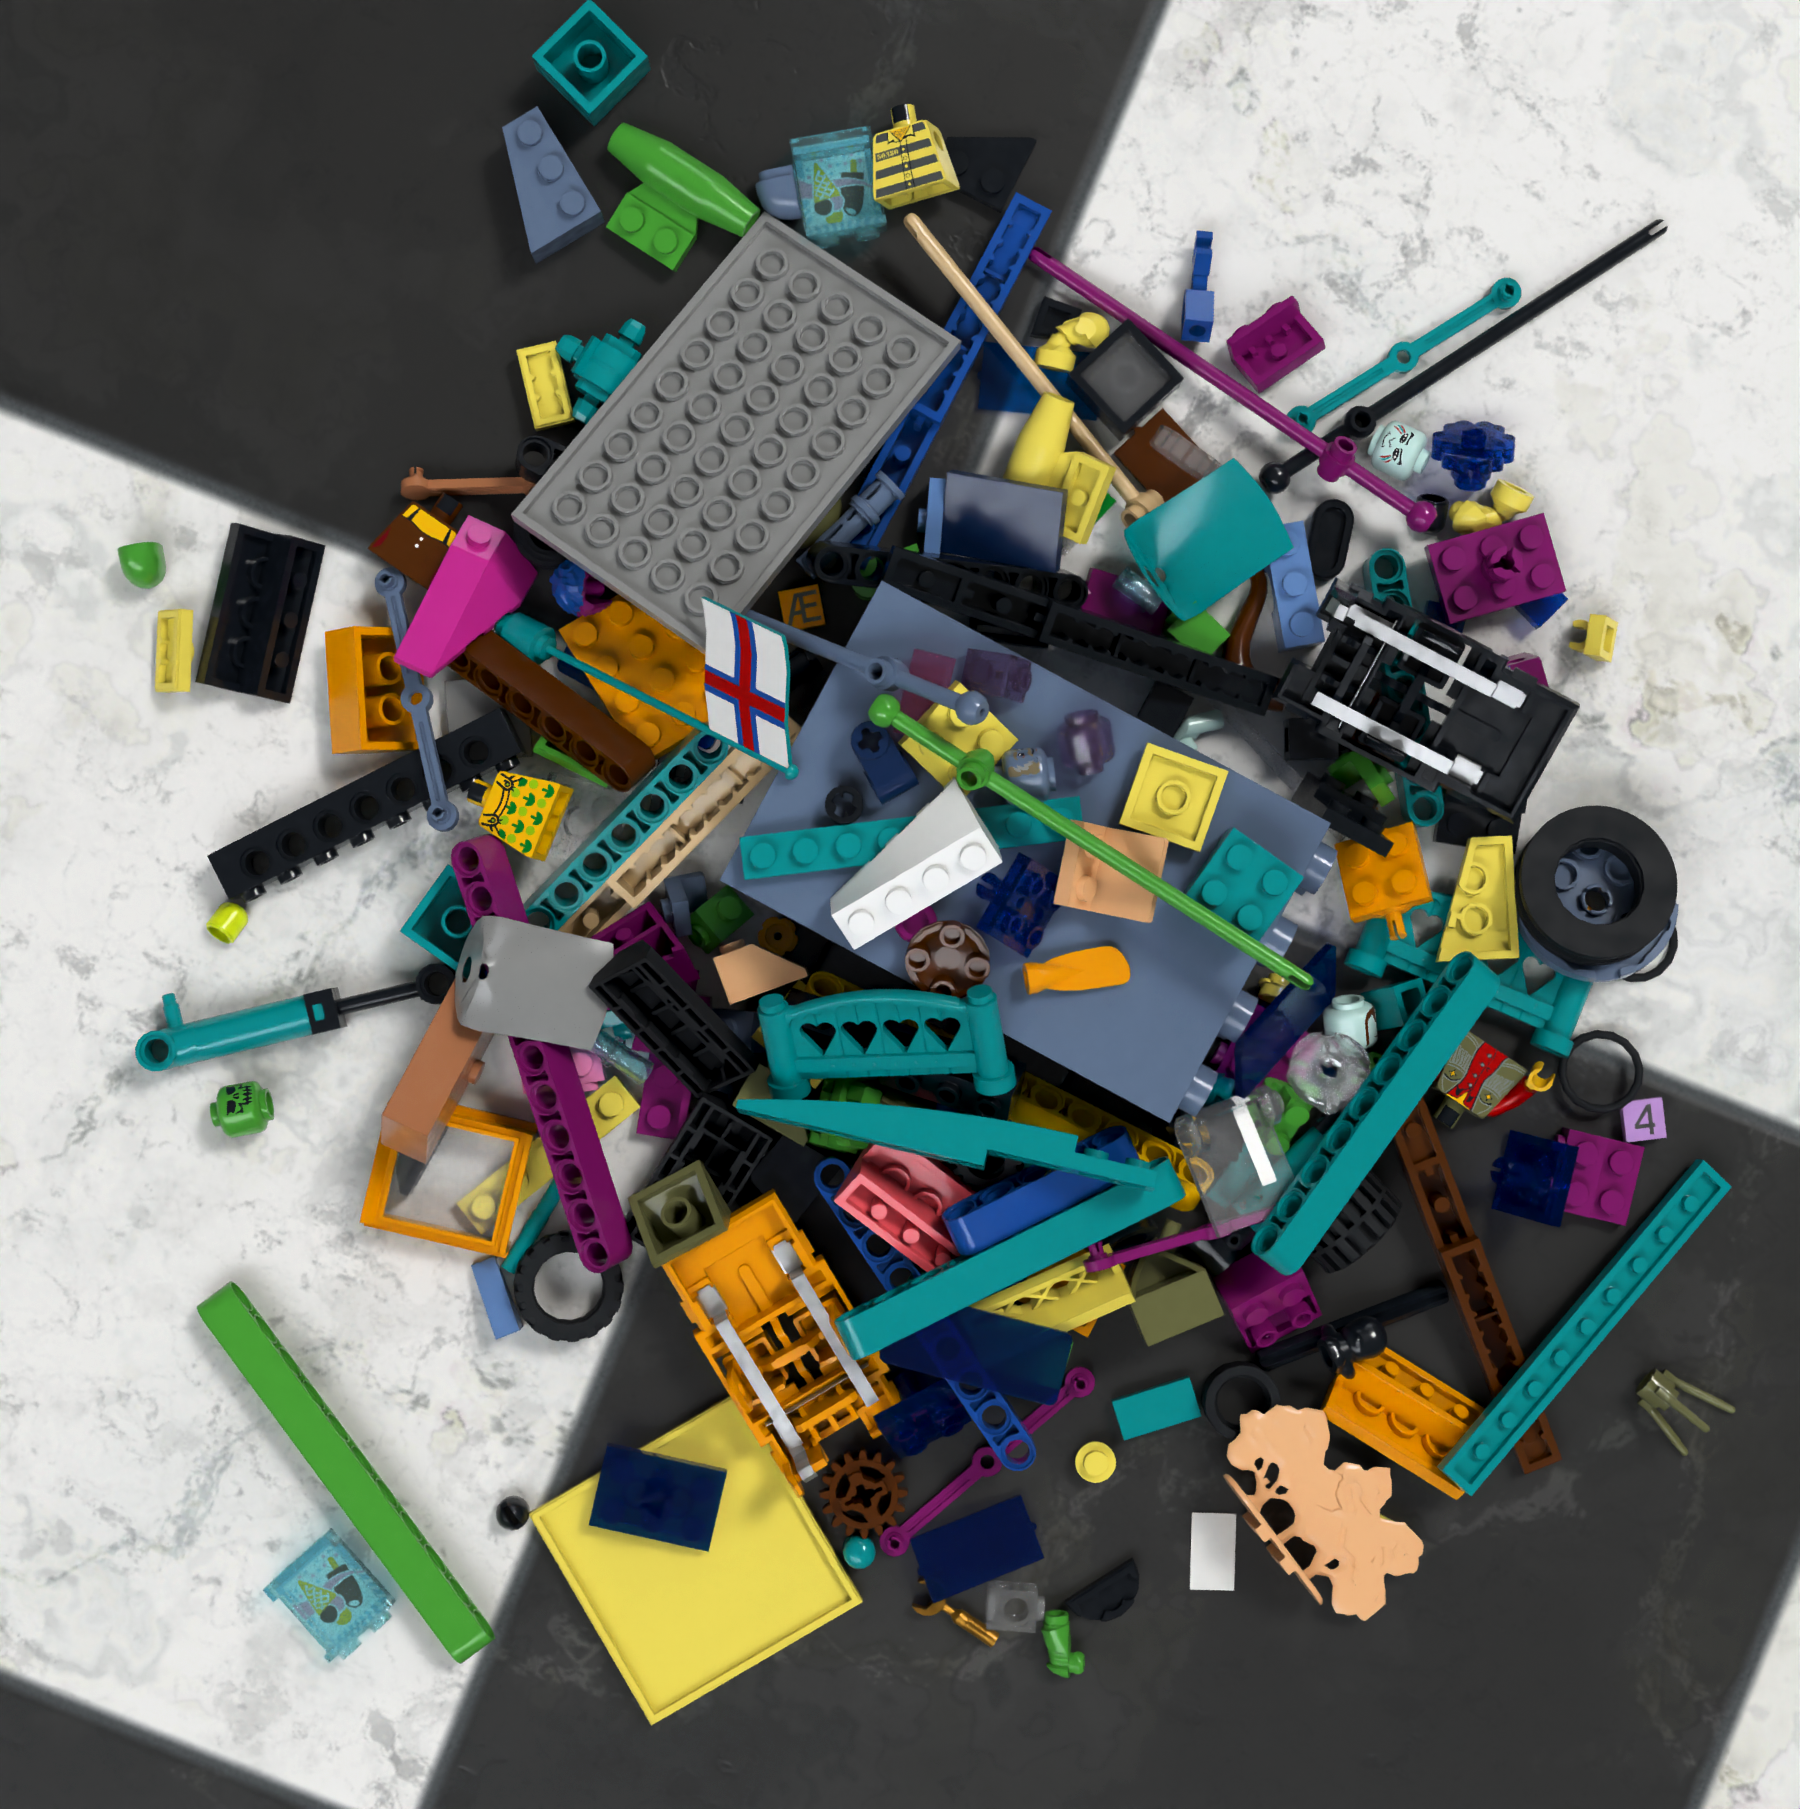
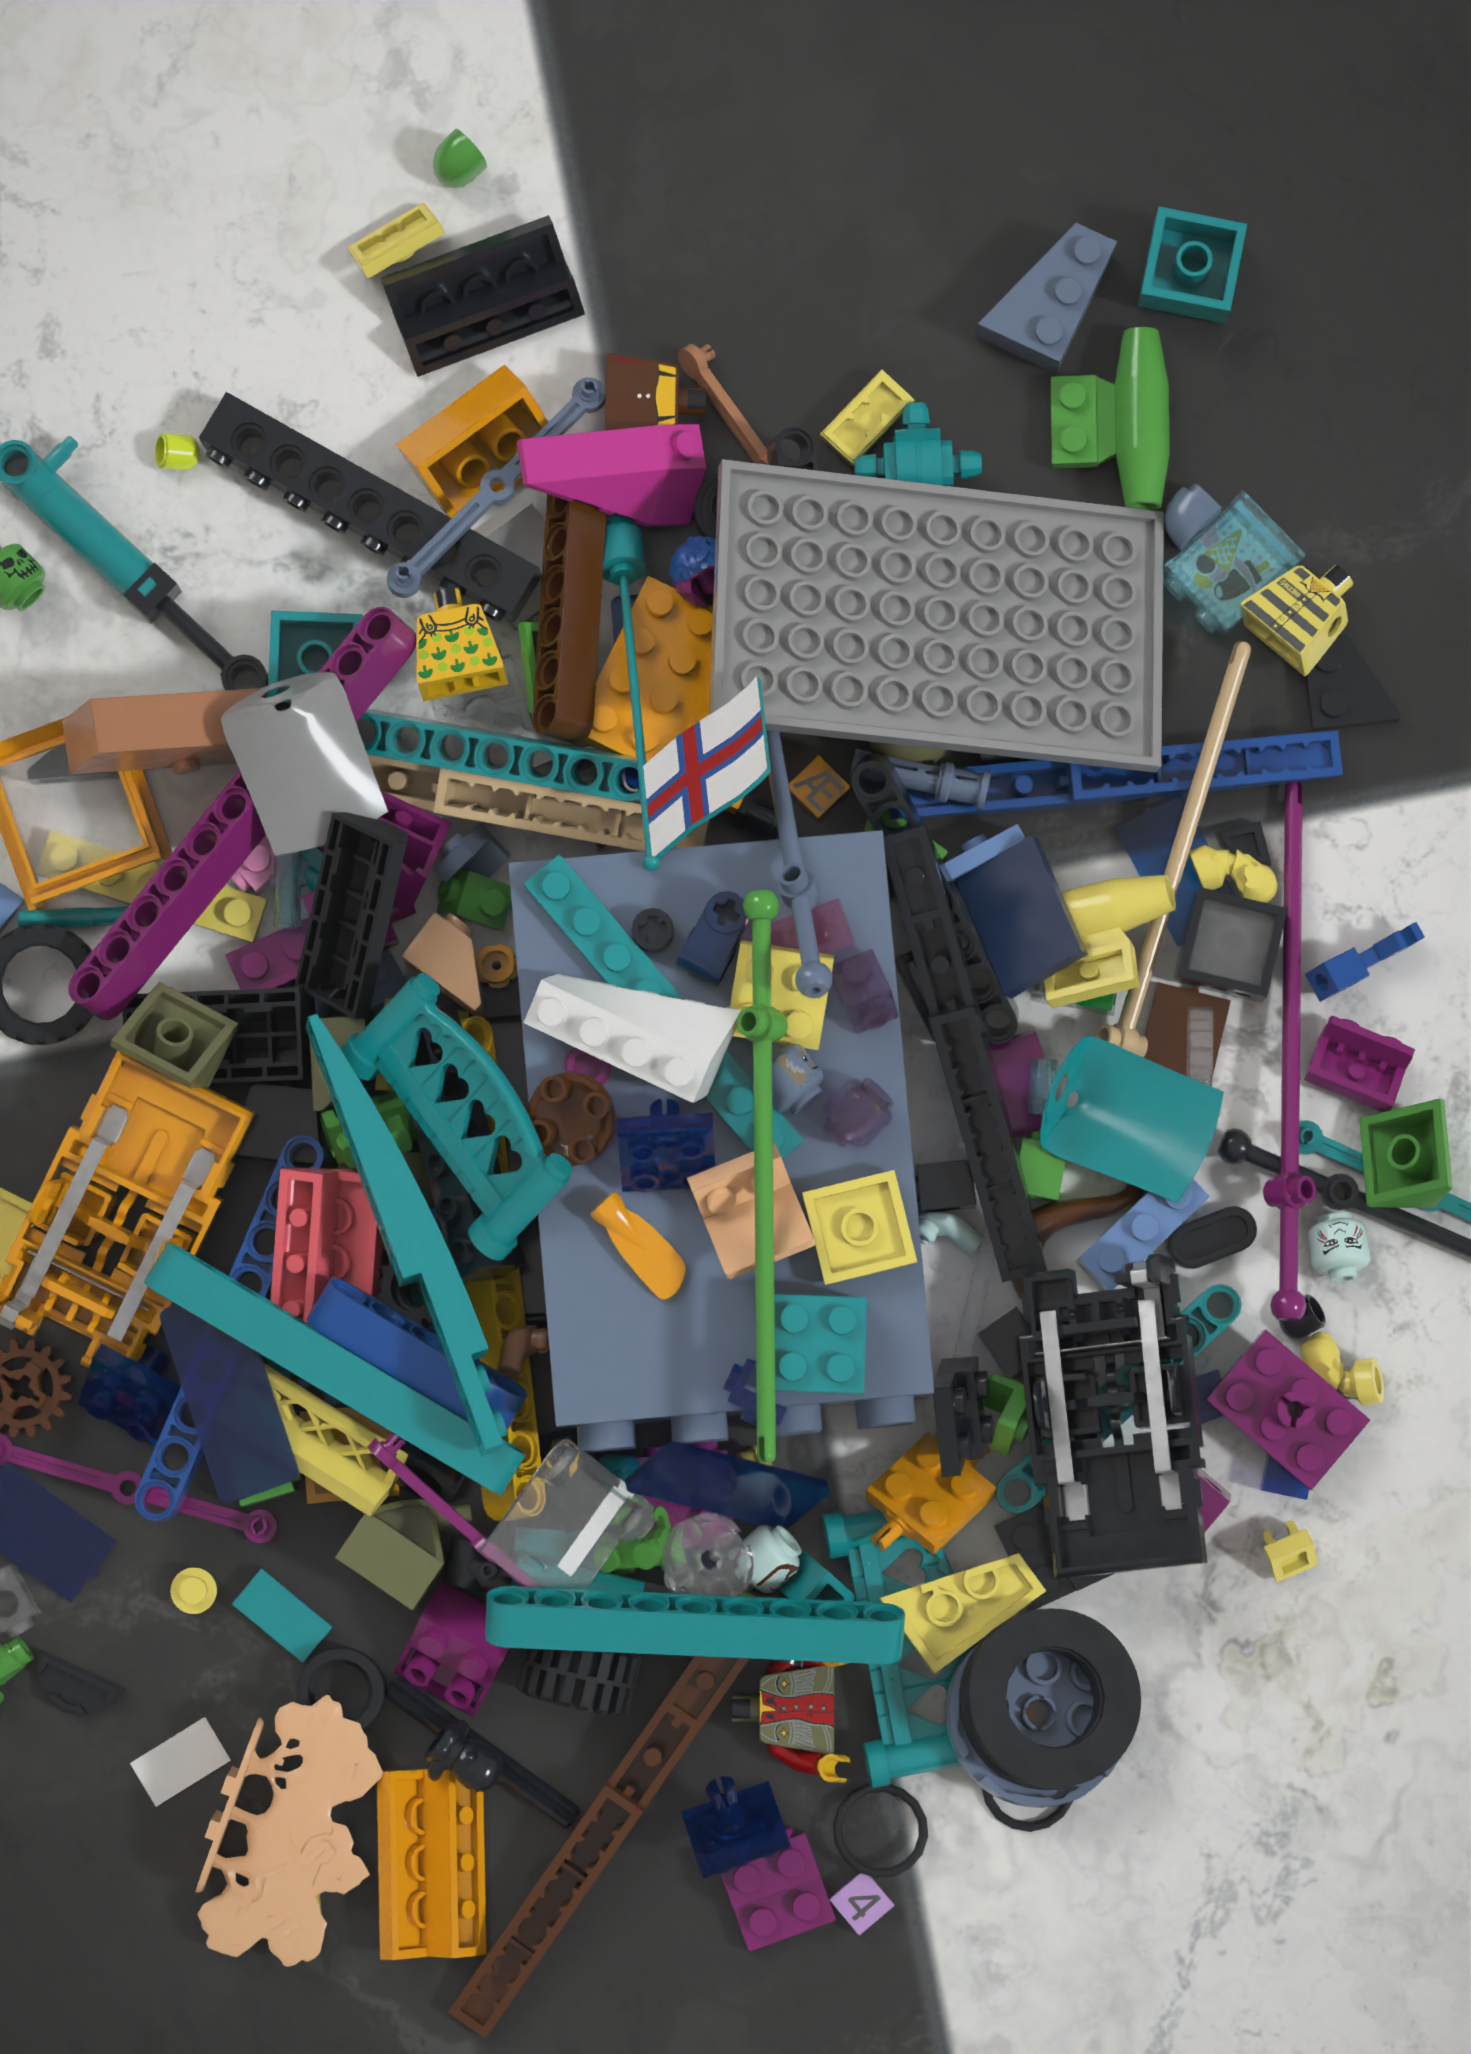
camera: 55 degrees right, 5 degrees down
(1079, 1106) = (519, 1344): none -> nougat arm
(1245, 968) = (745, 1398): none -> clear blue bracket
(1367, 354) = (1406, 1156): none -> bright green slope
(1472, 452) = (1383, 1315): clear blue plant -> none
(1584, 1327) = (625, 1971): teal plate -> none

